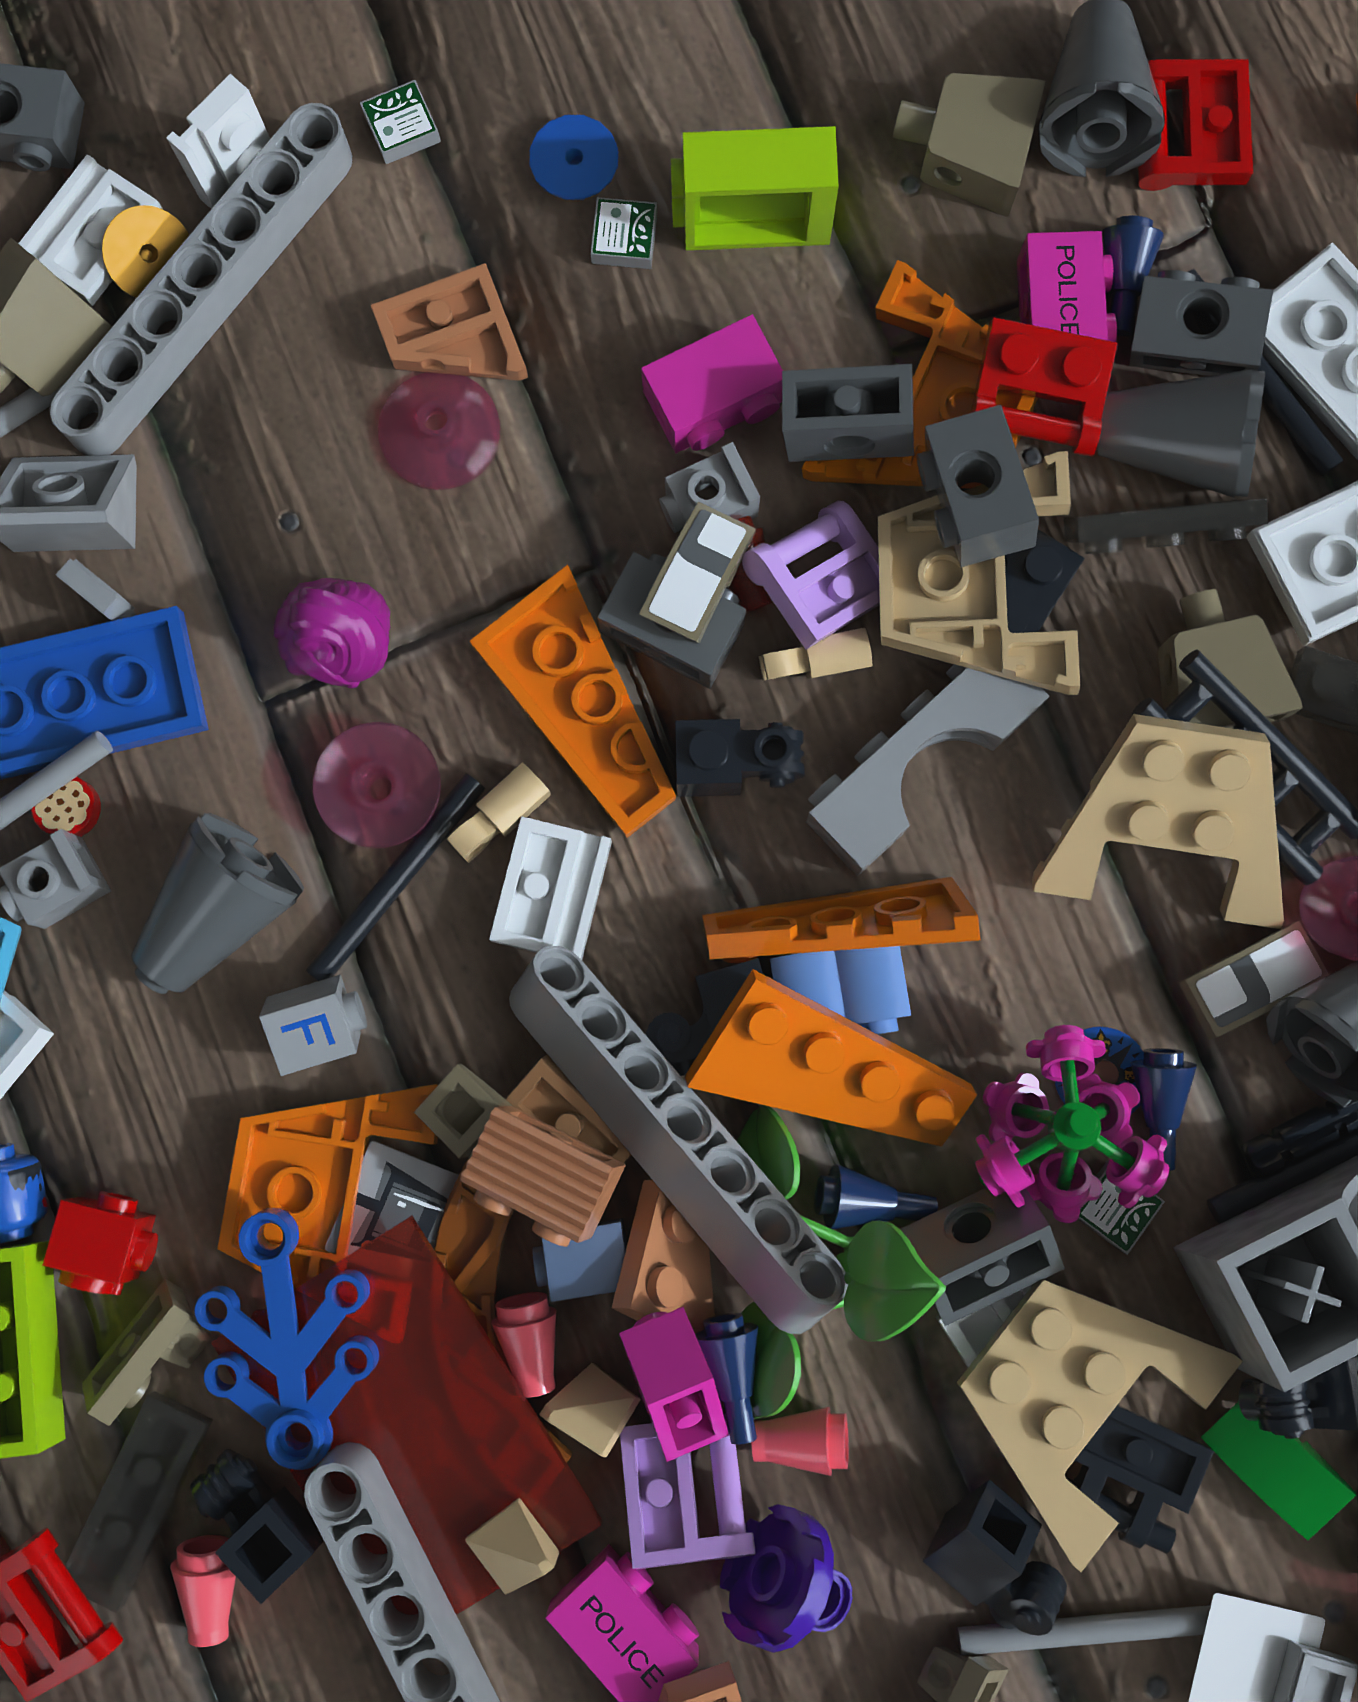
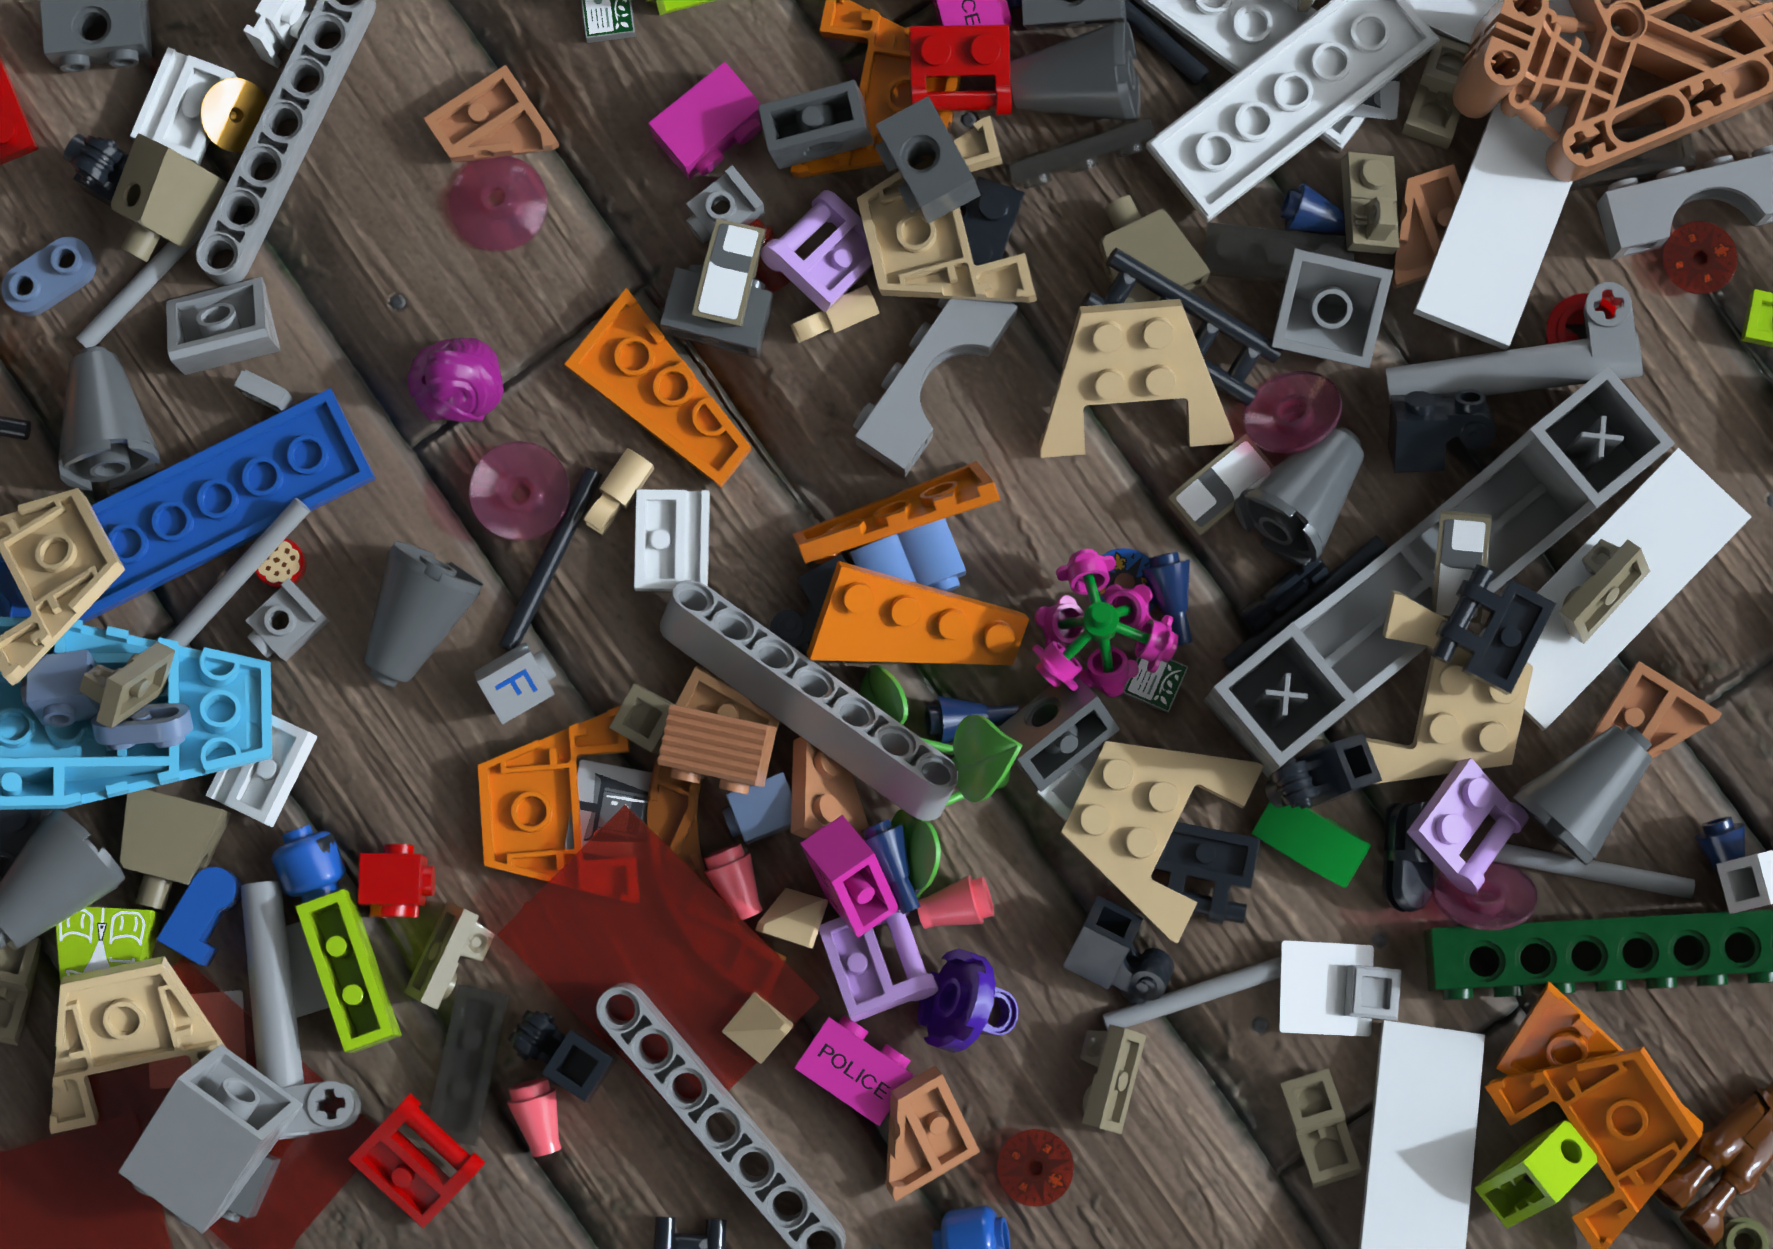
camera: 15 degrees left, 0 degrees up
(285, 1349) = (557, 922): blue plant -> none
(718, 755) = (777, 408): black brick -> none

